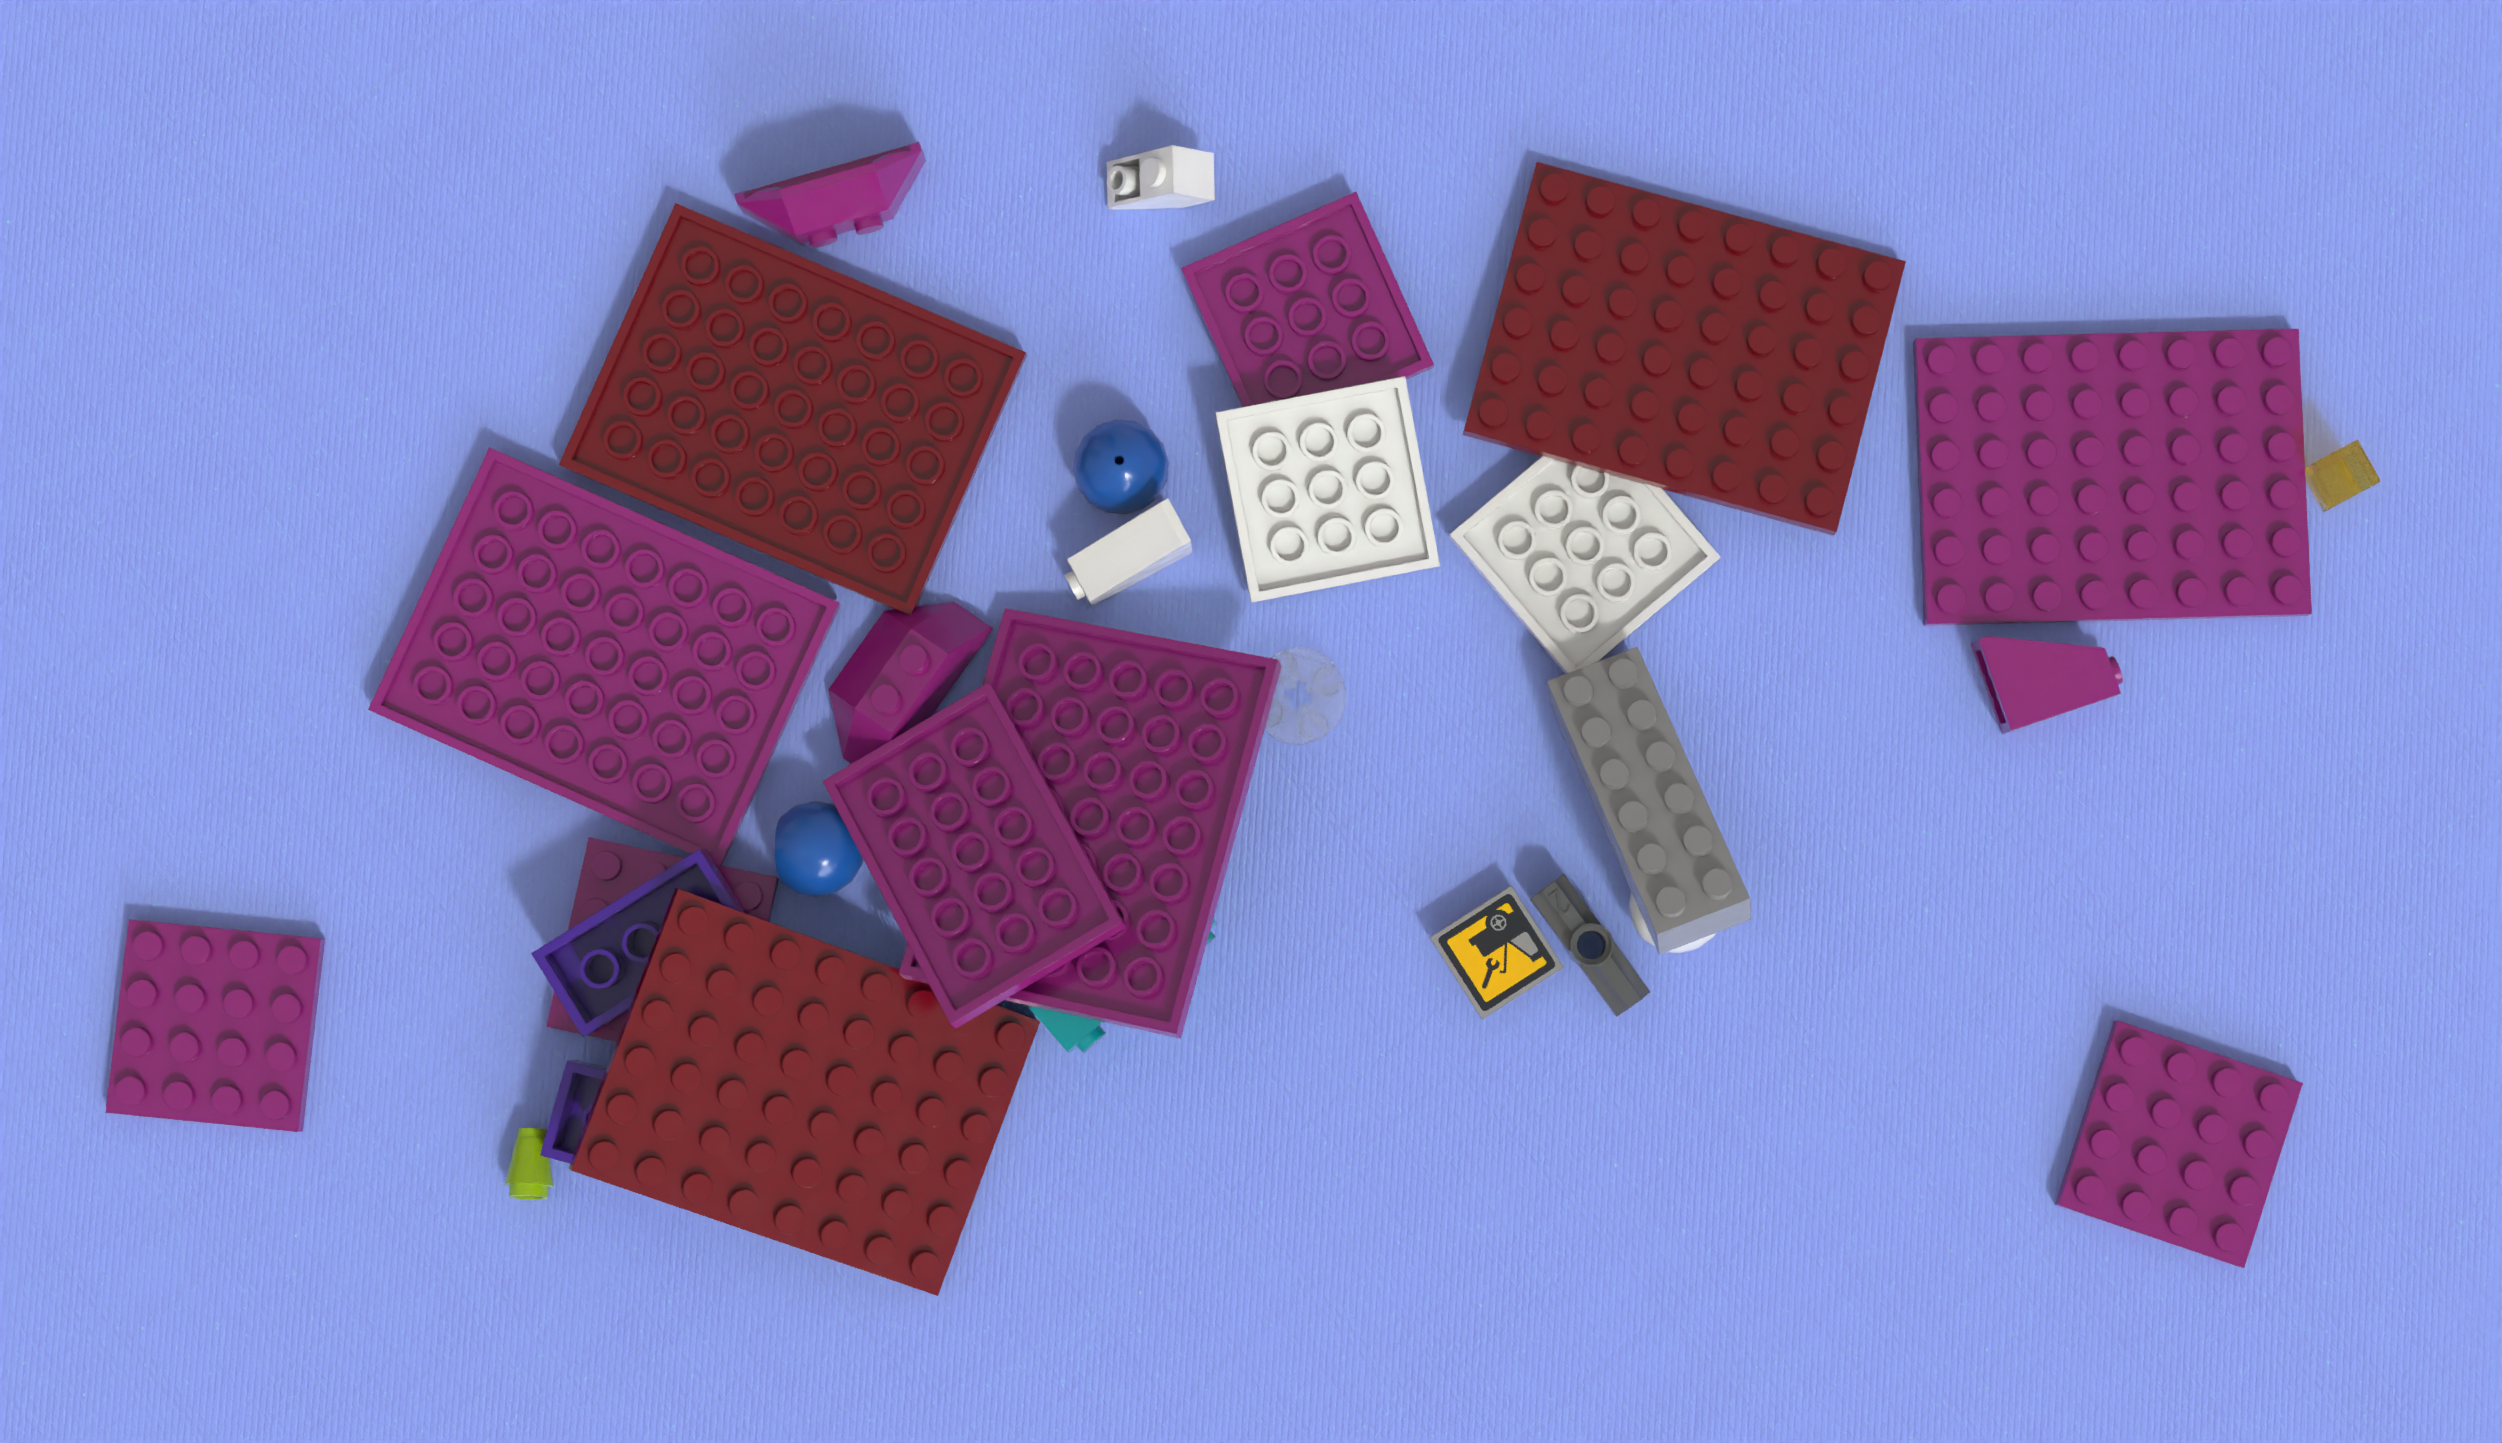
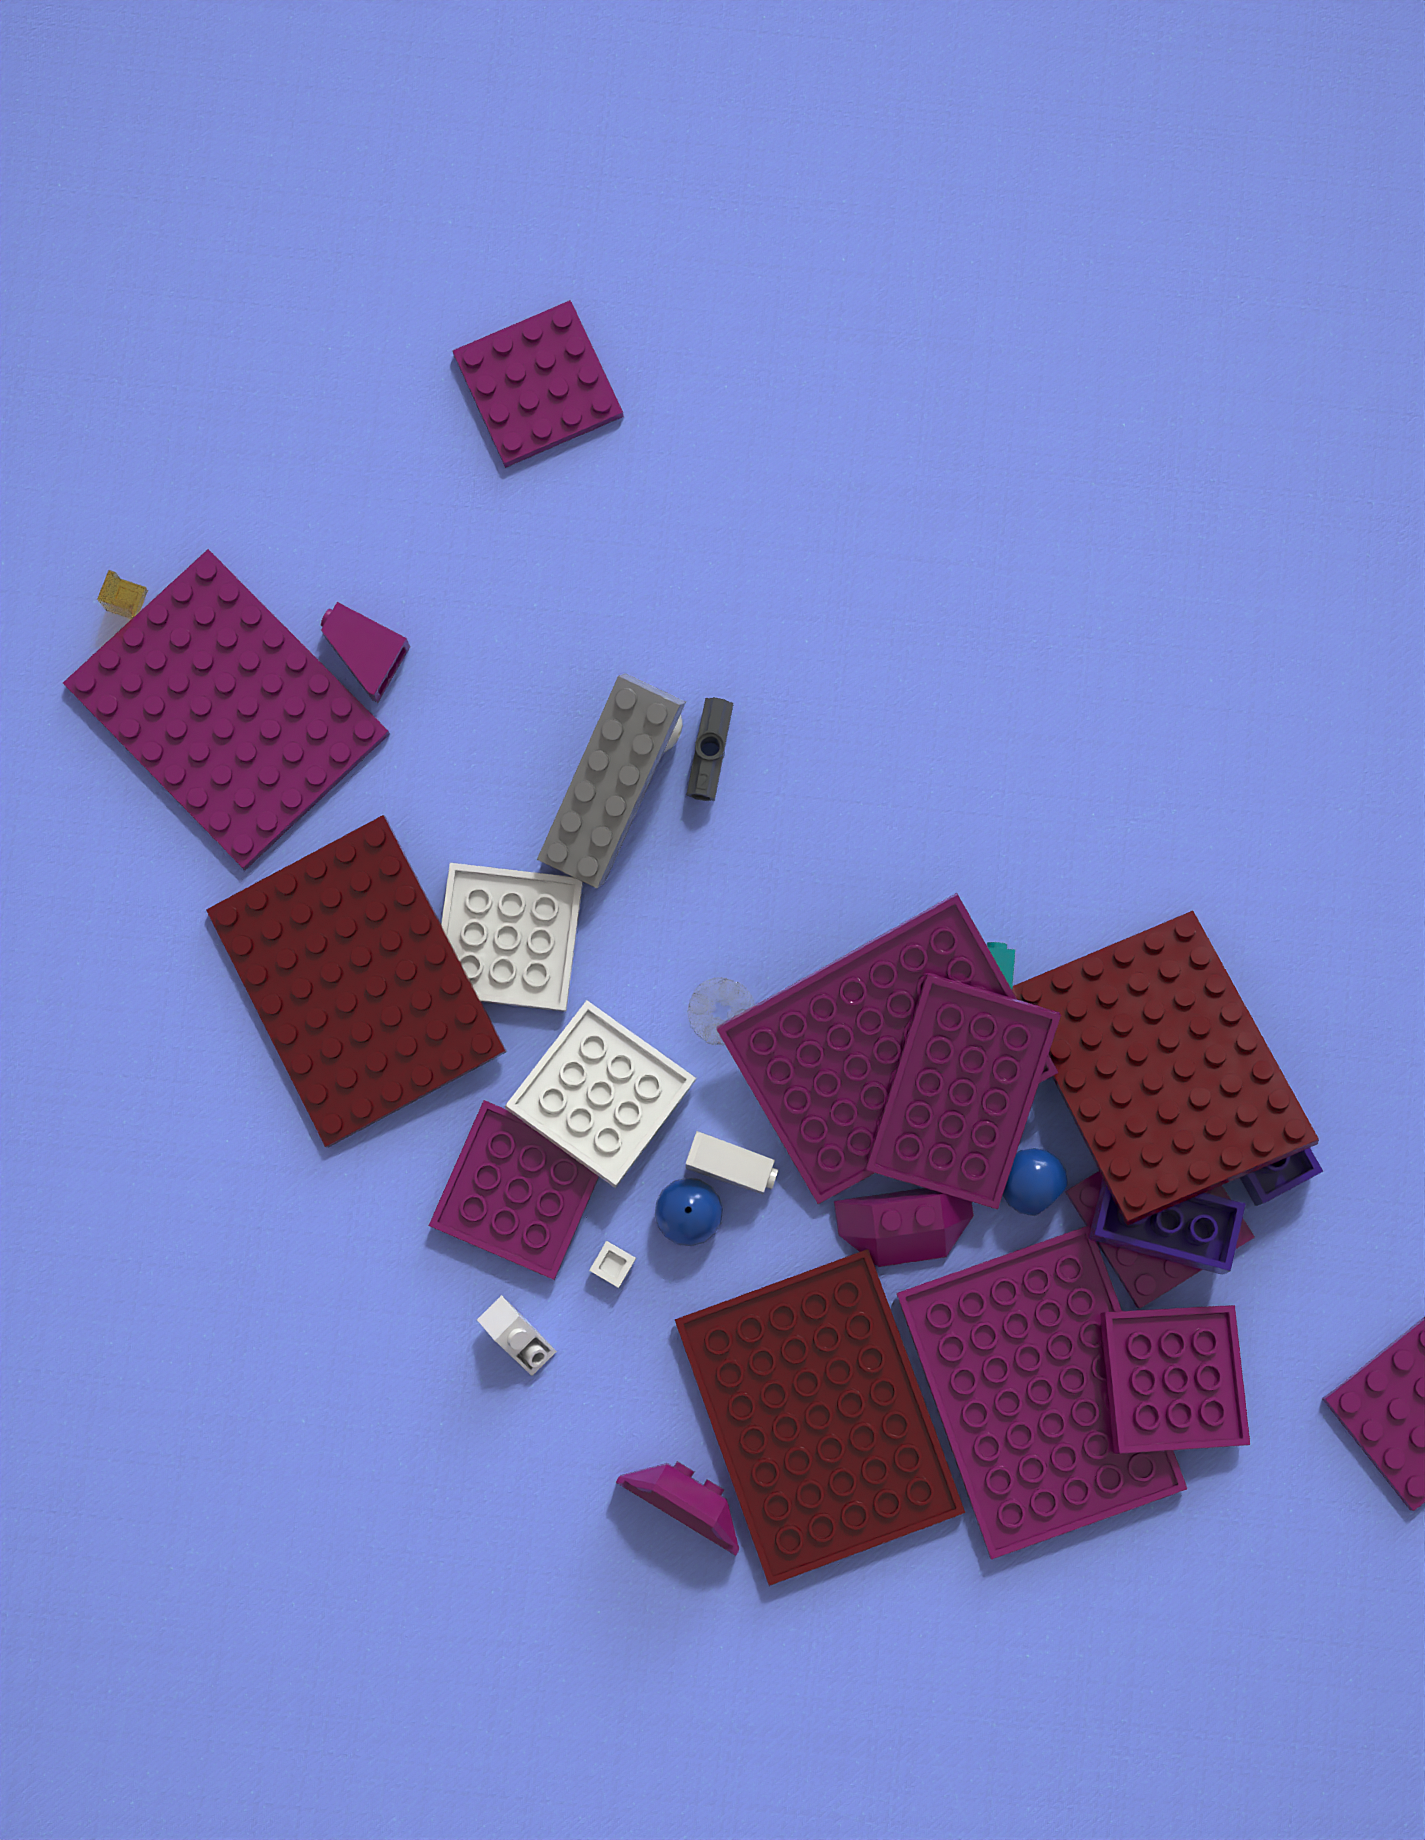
camera: 135 degrees left, 5 degrees down
(484, 800) = (1174, 1379): none -> magenta plate
(528, 1172) = (1335, 1175): lime cone -> none
(1141, 342) = (612, 1264): none -> white plate
(1496, 952) = (757, 791): piece -> none

